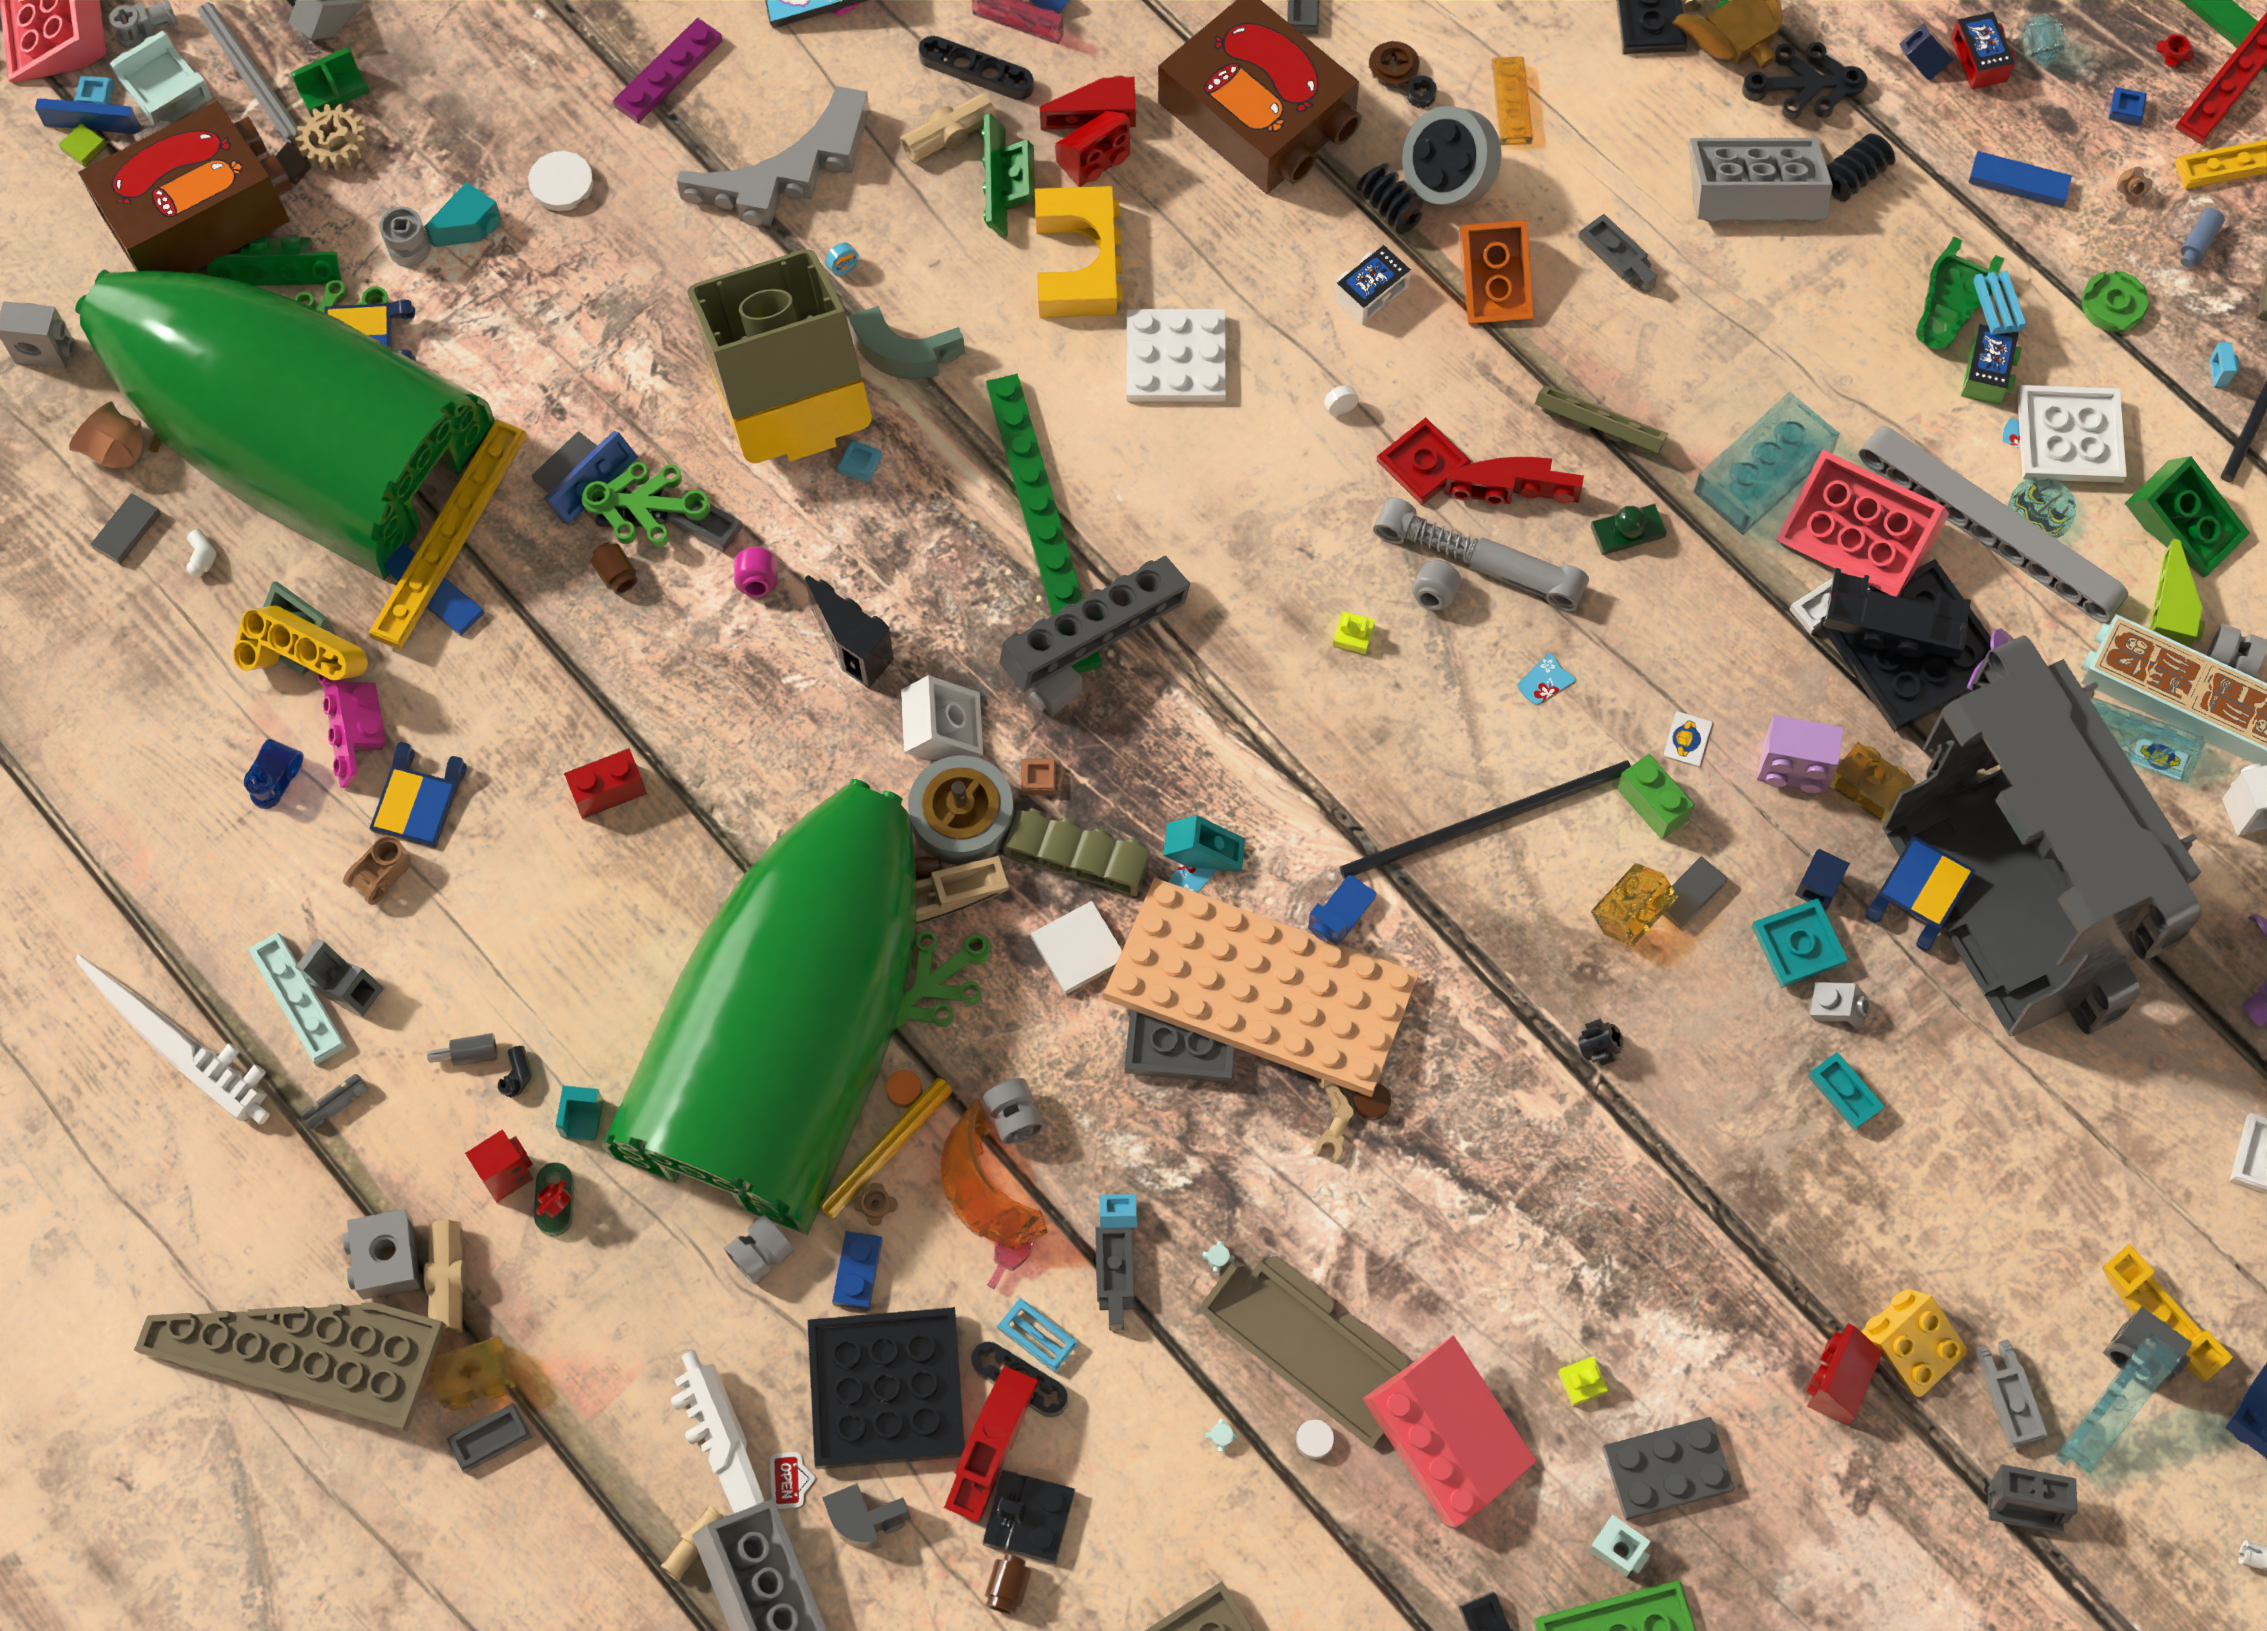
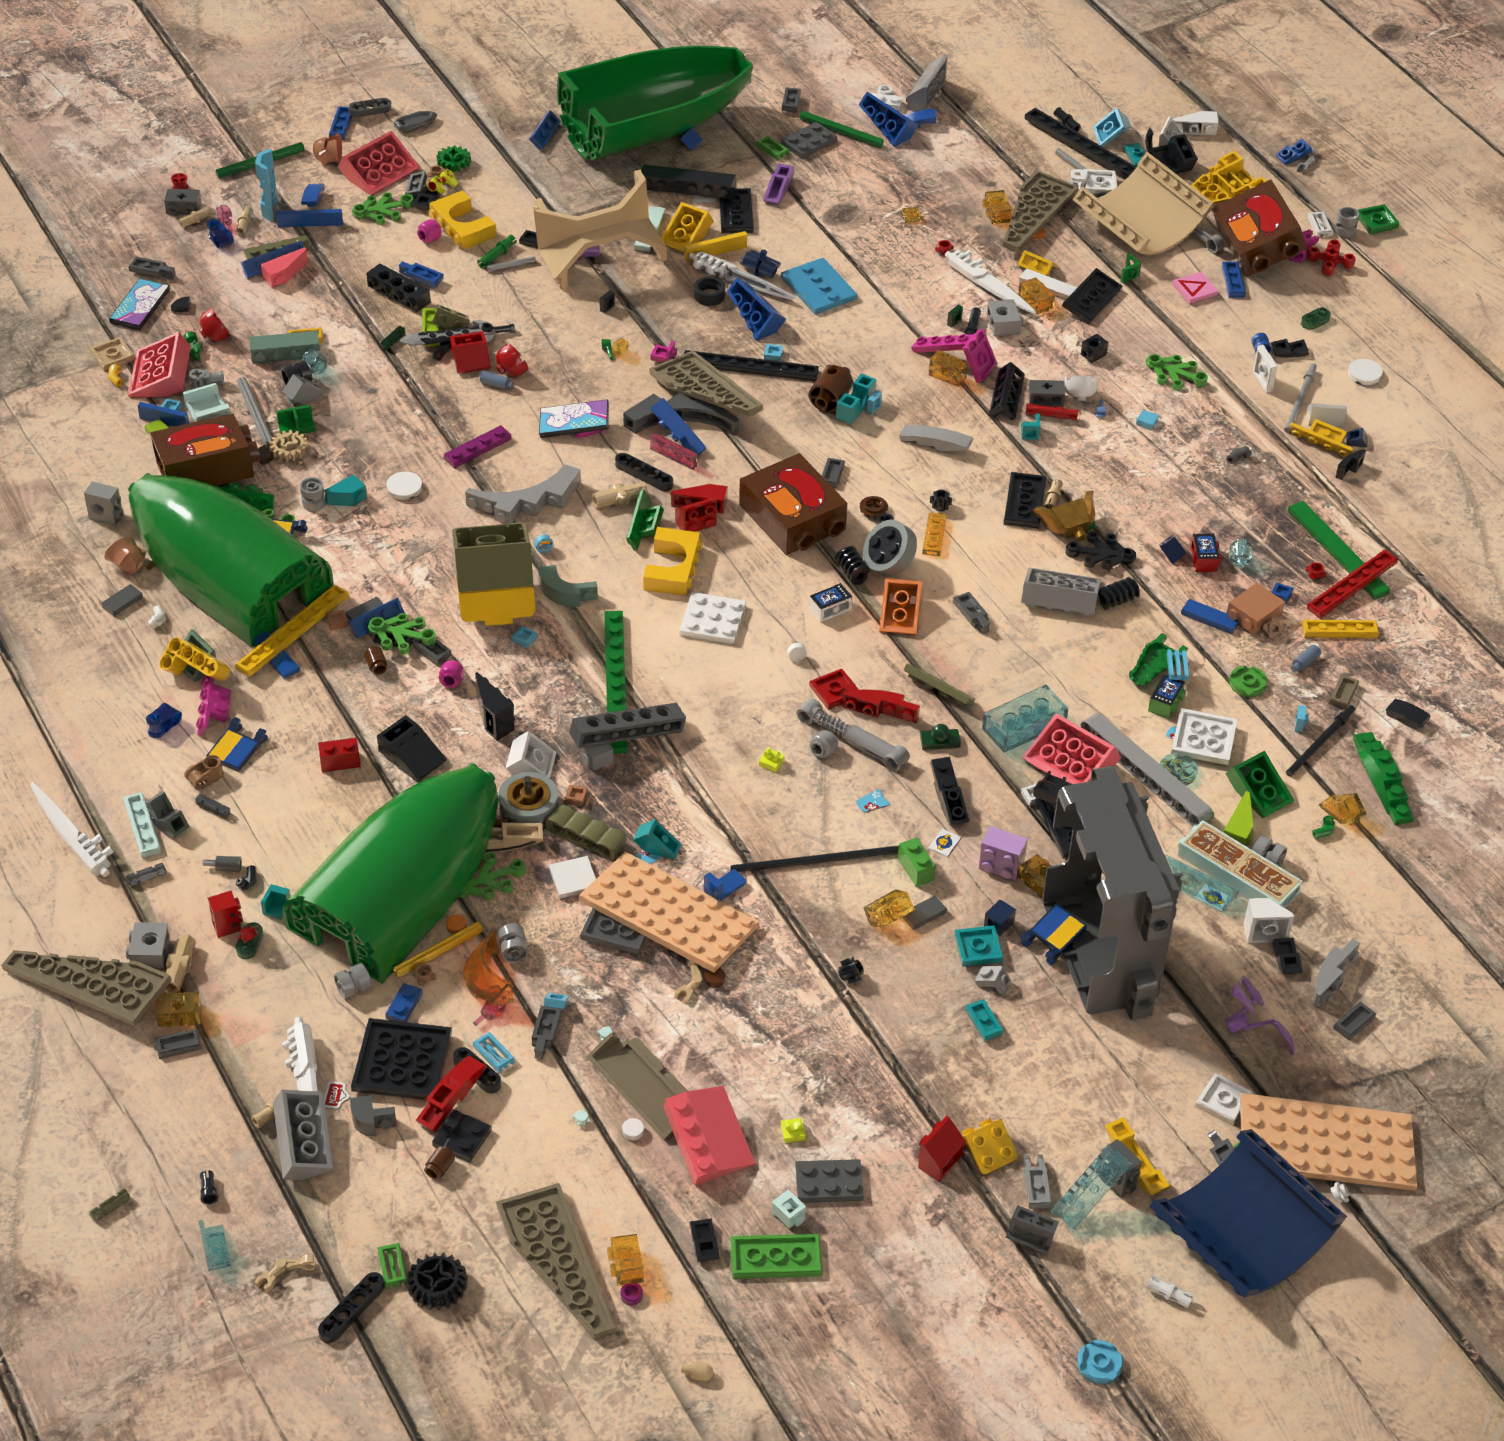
camera: 10 degrees right, 20 degrees down
(411, 933) = (212, 805): none -> dark grey axle
(521, 492) = (337, 620): none -> nougat tile
(727, 745) = (410, 748): none -> black slope
(1507, 29) = (940, 500): none -> black gear
(1673, 642) = (948, 792): none -> black slope
(2095, 151) = (1255, 608): none -> nougat brick

